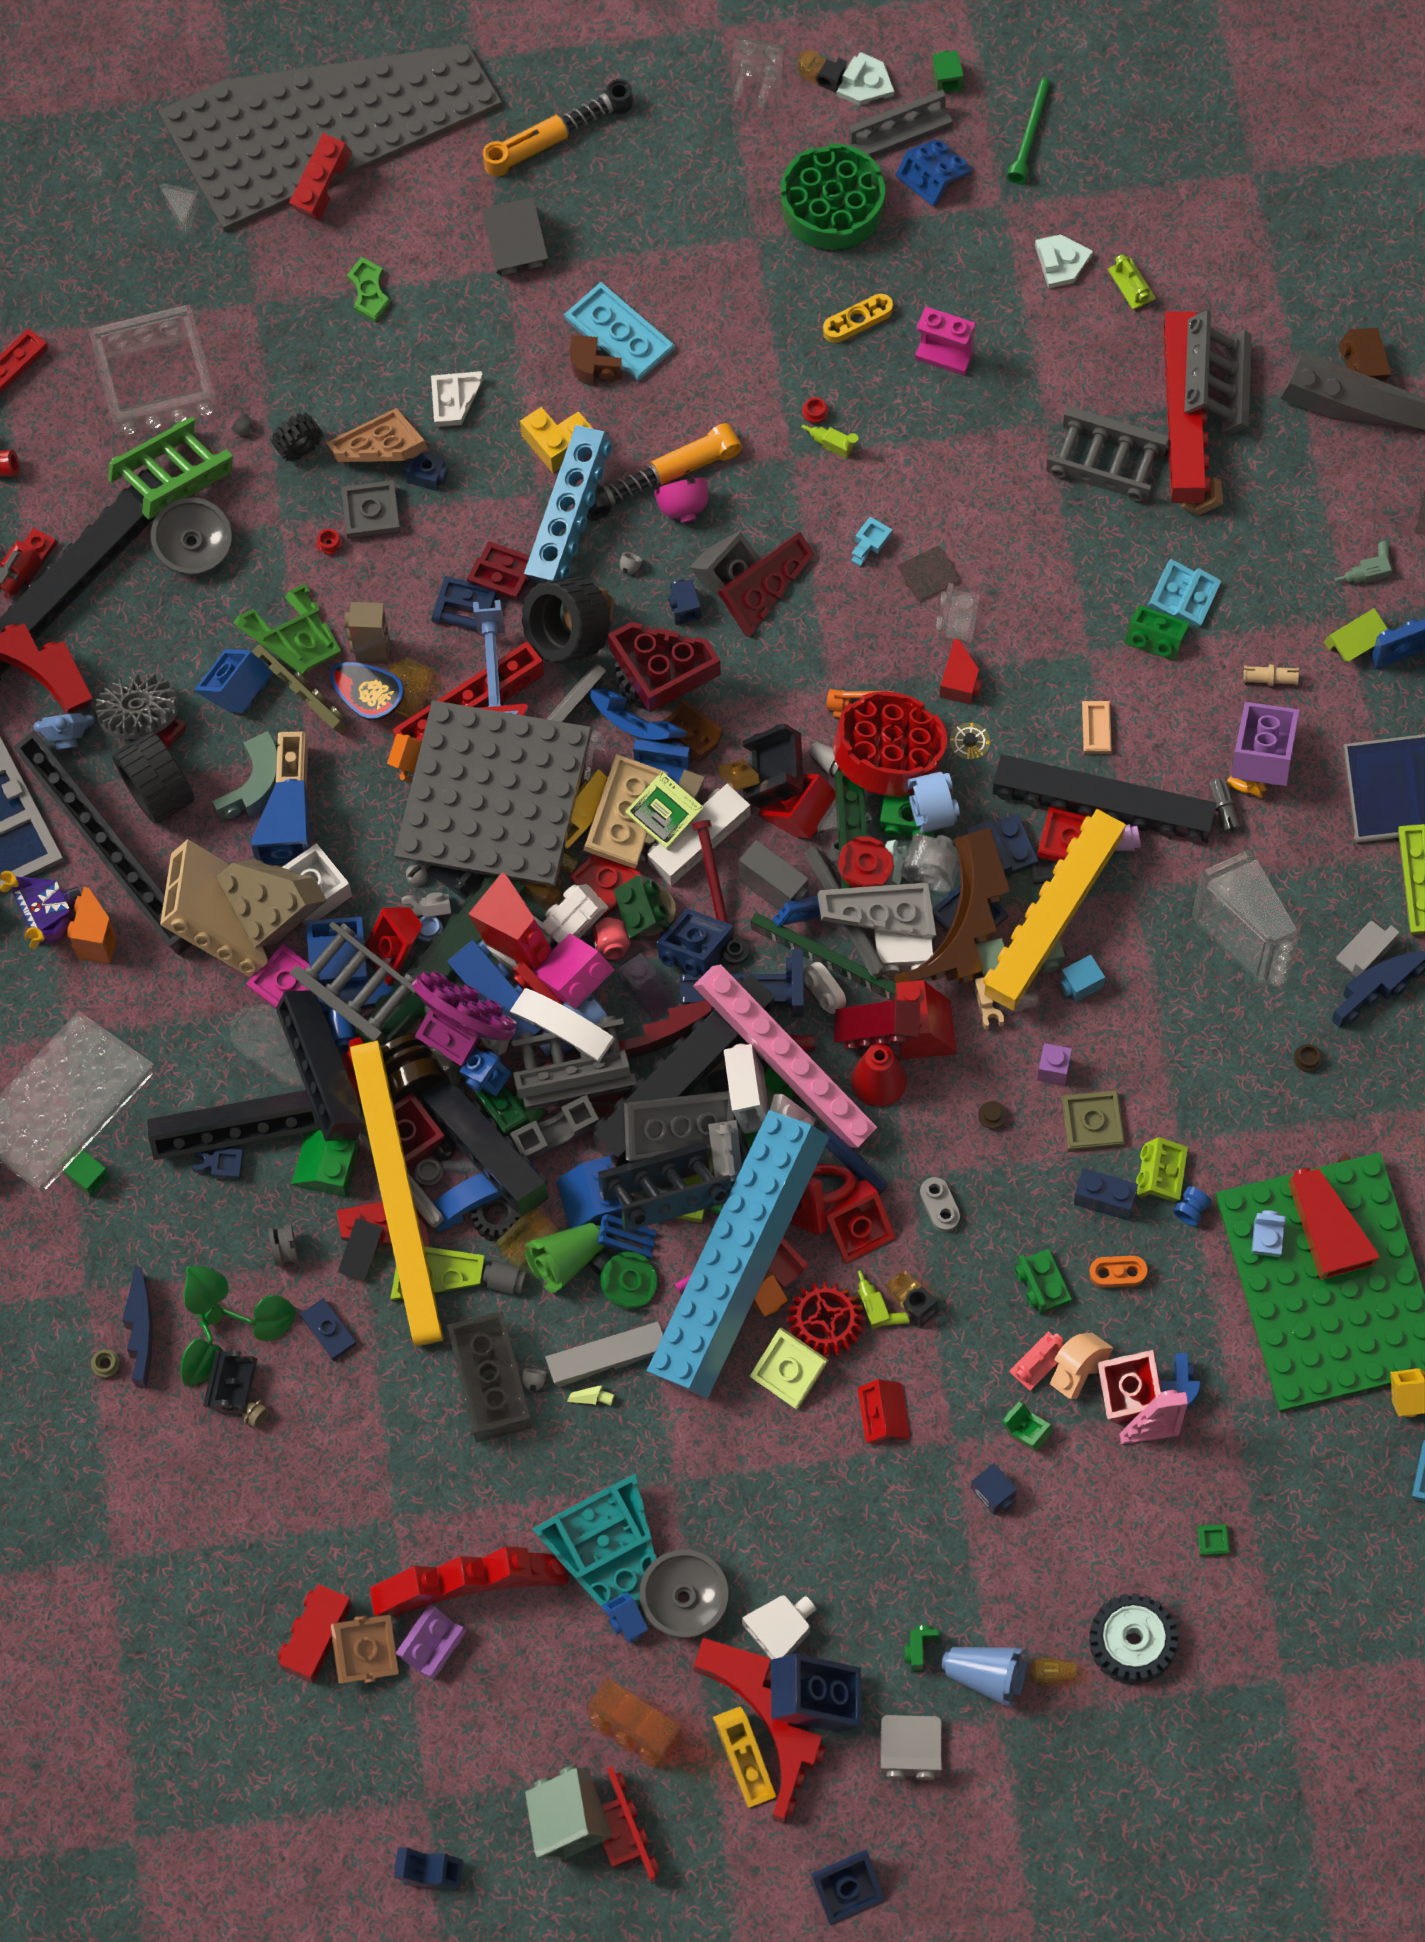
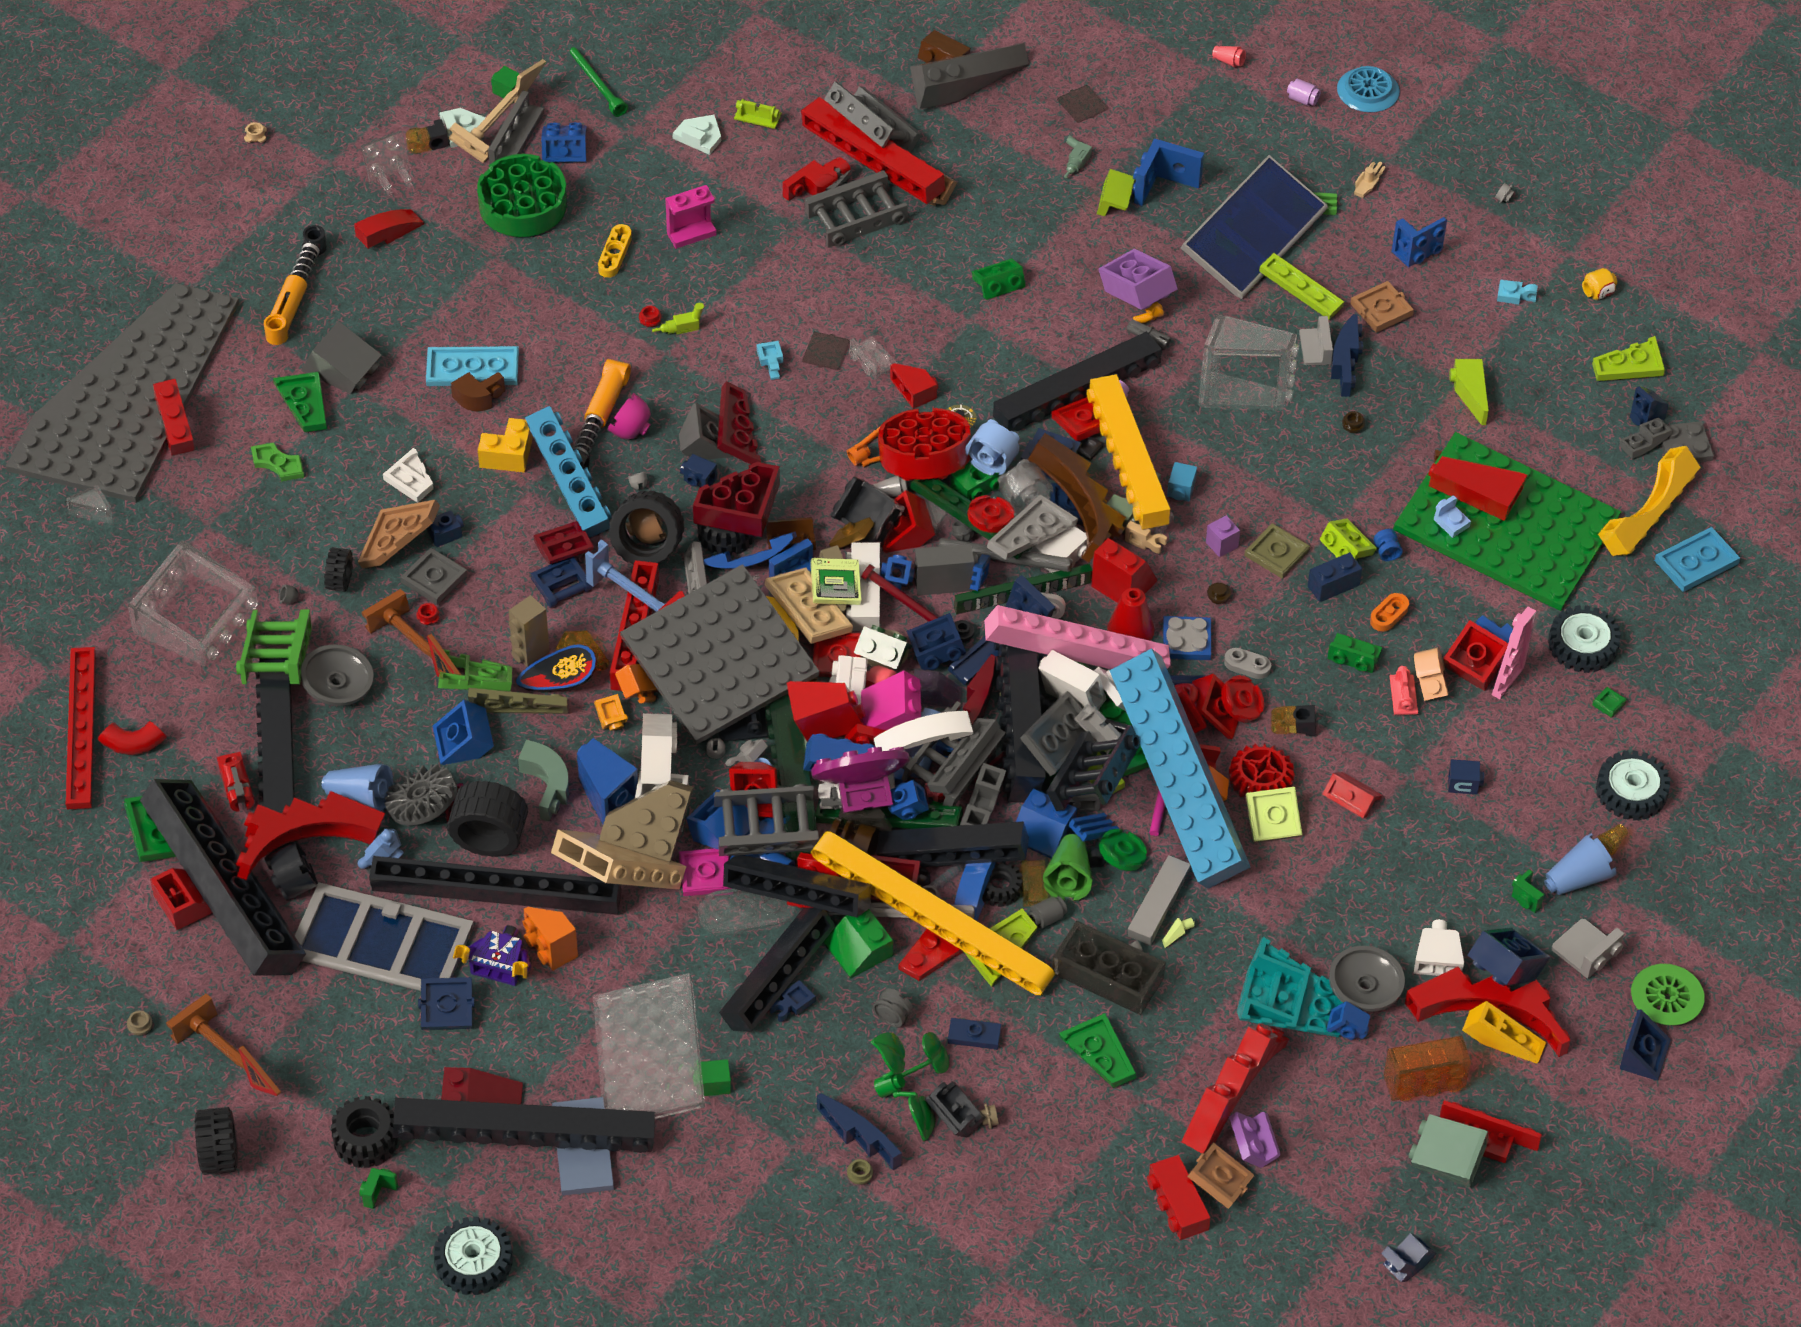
camera: 50 degrees left, 15 degrees down
(104, 657) = (361, 784): none -> medium blue cone
(292, 756) = (562, 742): tan brick -> none
(294, 511) = (390, 611): none -> dark orange piece
(350, 832) = (658, 743): none -> white wedge
(360, 1249) = (941, 971): black tile -> none
(367, 766) = (610, 712): none -> light orange bracket
(407, 1442) = (1100, 1049): none -> green wing
(450, 247) = (304, 399): none -> green wing
(693, 132) = (386, 226): none -> red slope
(729, 842) = (899, 563): none -> blue brick
(875, 1307) = (1281, 742): lime piece -> none
(876, 1024) = (1107, 584): dark red brick -> none
(888, 1235) = (1242, 699): none -> red tile
(916, 1132) = (1187, 637): none -> light grey piece
(931, 1826) = (1676, 975): none -> bright green piece
(948, 82) = (471, 141): none -> tan piece
(1027, 1427) = (1442, 731): green bracket -> none
(1096, 727) = (1025, 353): light nougat tile -> none
(1107, 394) = (816, 178): none -> red plate
(1184, 593) = (988, 246): medium azure slope -> none
(1269, 1440) = (1584, 639): none -> wheel
(1271, 675) = (1091, 250): tan pin -> none

